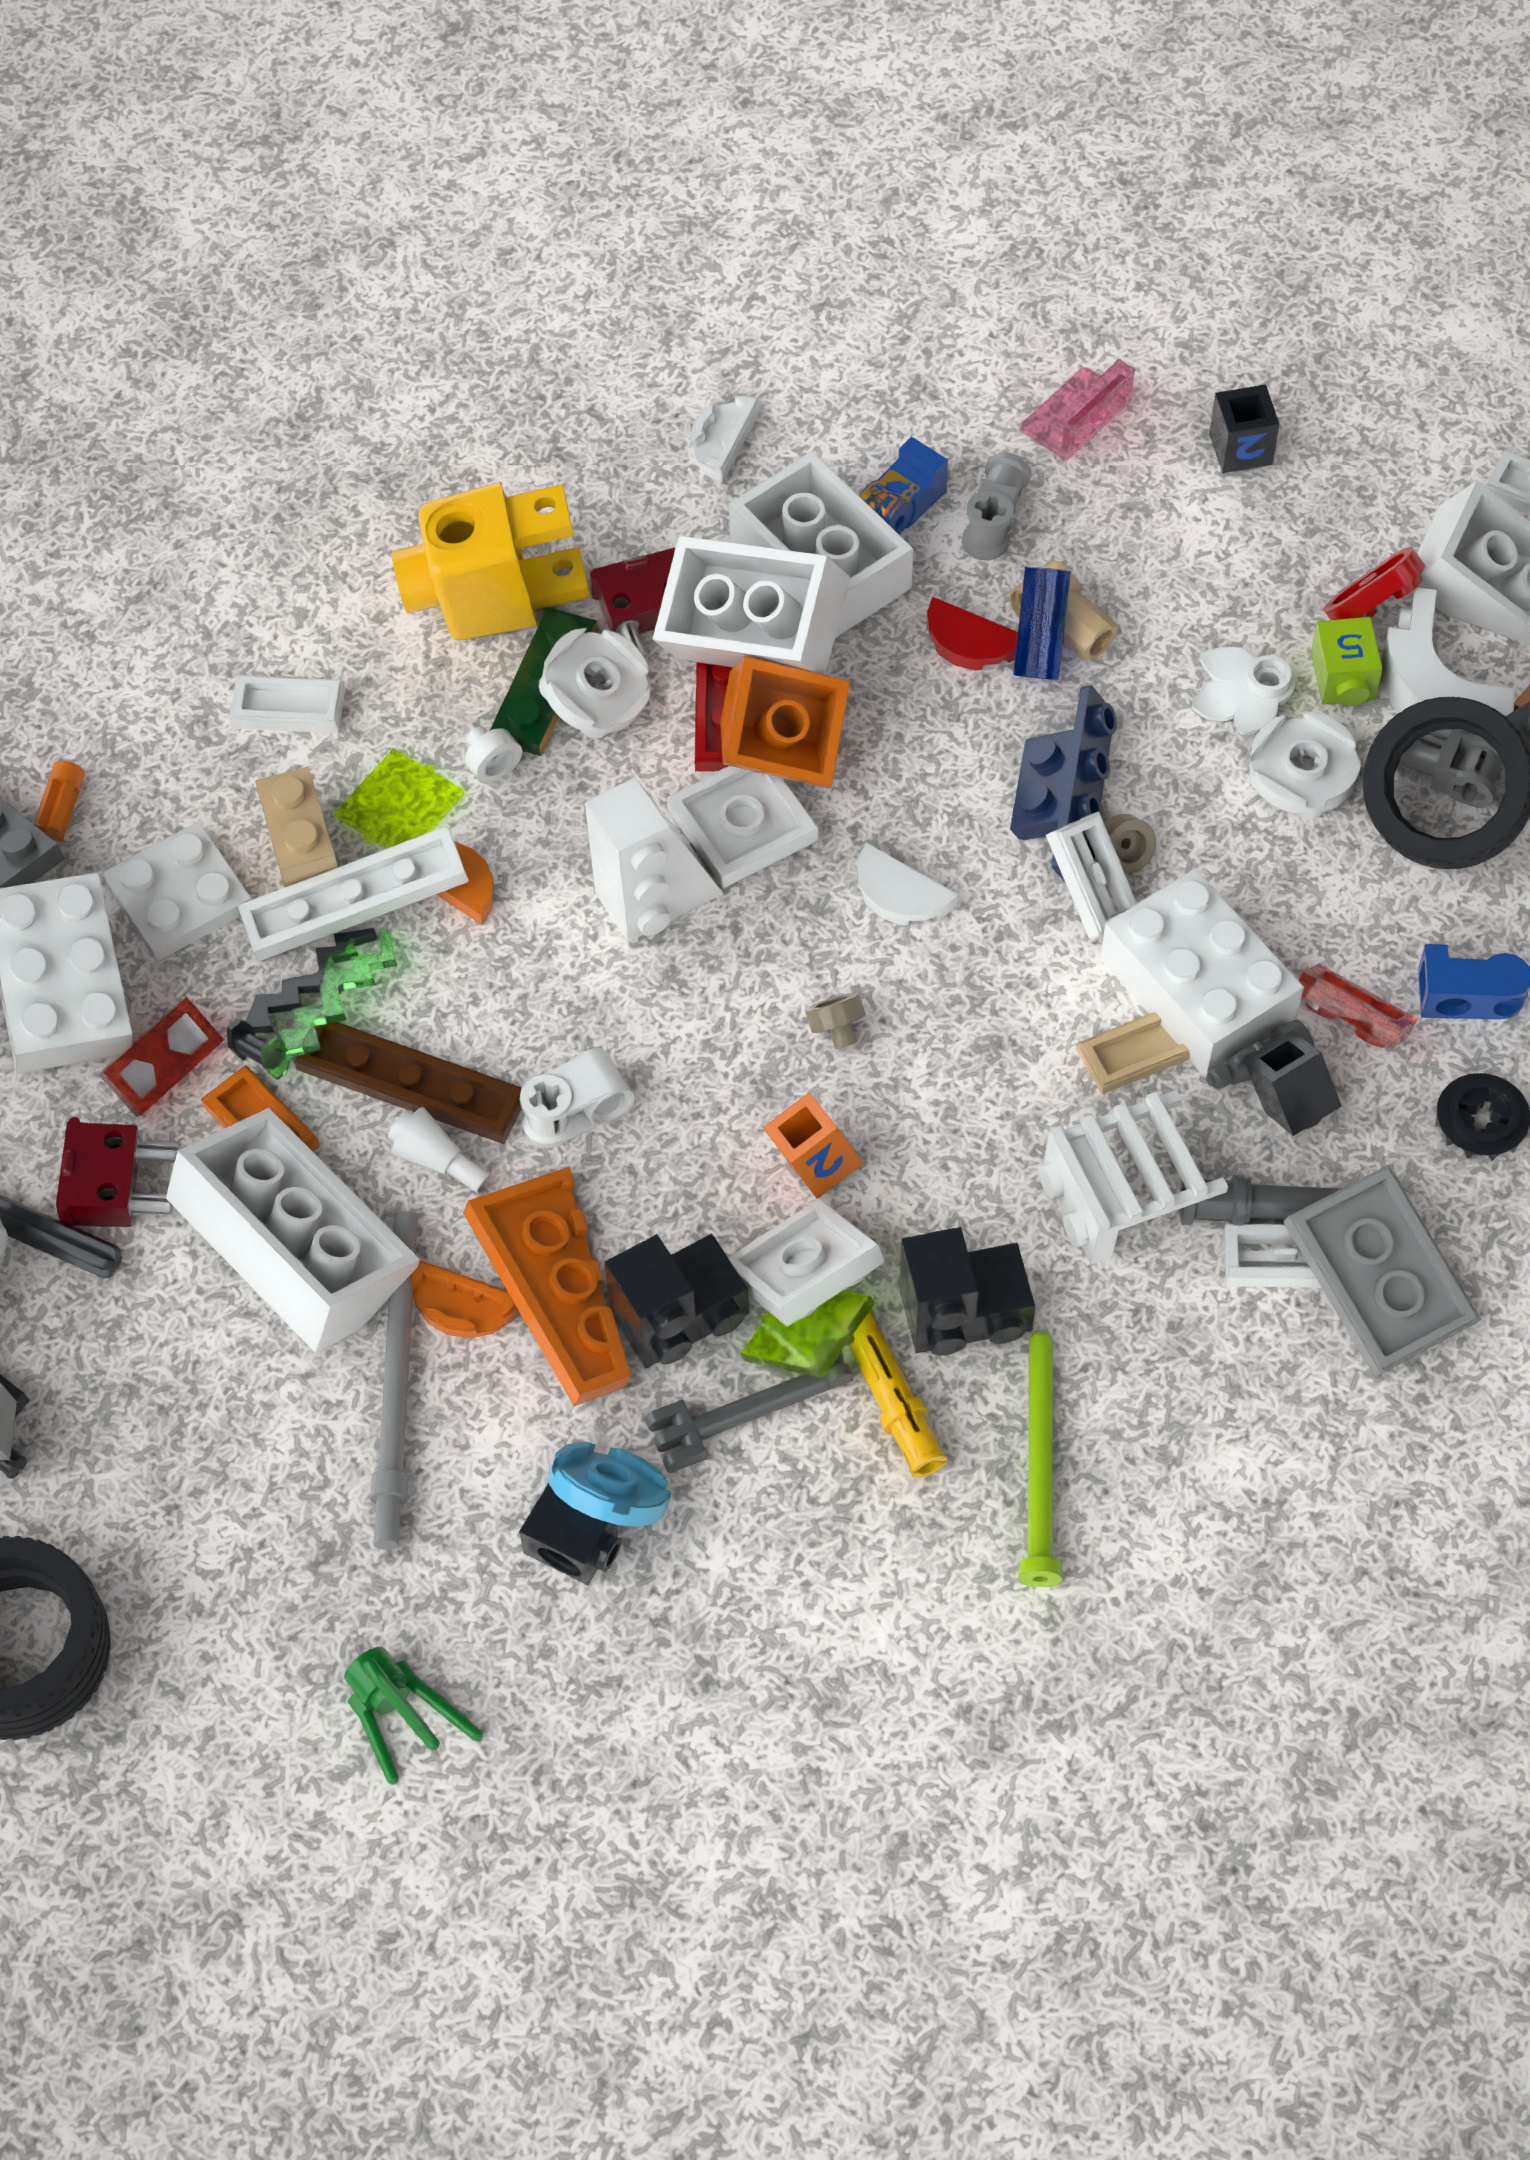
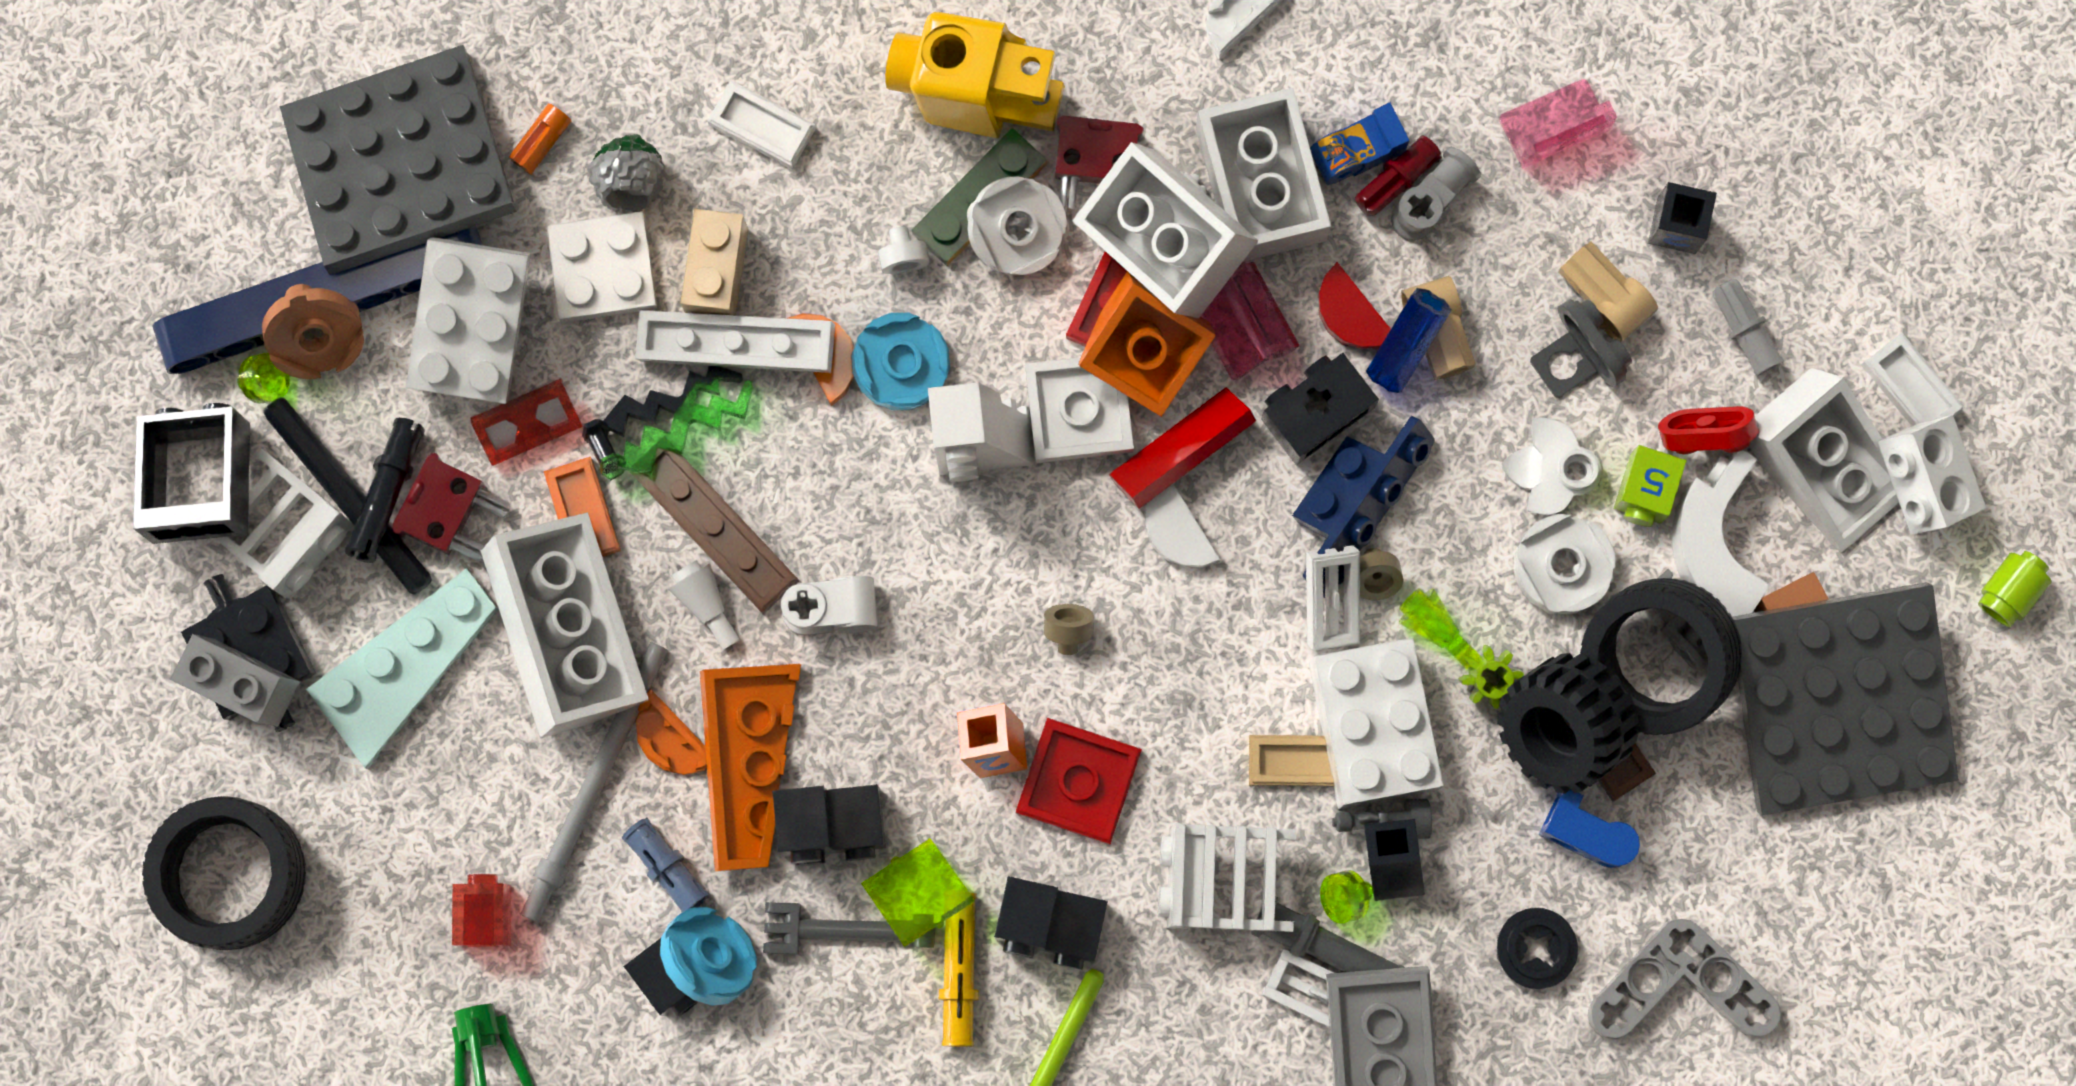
camera: 25 degrees right, 20 degrees up
(32, 1160) = (392, 471): none -> black pin
(115, 1369) = (392, 673): none -> light aqua wing
(166, 789) = (627, 173): none -> light grey piece
(330, 1557) = (481, 912): none -> clear red brick
(398, 801) = (812, 262): clear neon green piece -> none
(481, 1409) = (665, 865): none -> sand blue pin
(535, 850) = (899, 361): none -> medium azure tile
(805, 1262) = (938, 837): white plate -> none
(867, 811) = (1182, 447): none -> red tile
(878, 683) = (1248, 323): none -> clear pink panel
(922, 1160) = (1078, 781): none -> red tile
(951, 504) = (1398, 176): none -> dark red axle
(984, 722) = (1304, 432): none -> black brick
(1212, 864) = (1430, 619): none -> clear neon green cone
(1218, 567) = (1583, 335): none -> dark grey bracket
(1222, 526) = (1620, 301): none -> tan piece
(1260, 1146) = (1345, 896): none -> clear neon green tile
(1278, 880) = (1493, 663): none -> lime gear
(1358, 501) = (1747, 327): none -> light grey axle
(1367, 911) = (1590, 704): none -> black tyre
(1373, 1017) = (1485, 808): clear red piece -> none
(1465, 920) = (1627, 775): none -> reddish brown tile

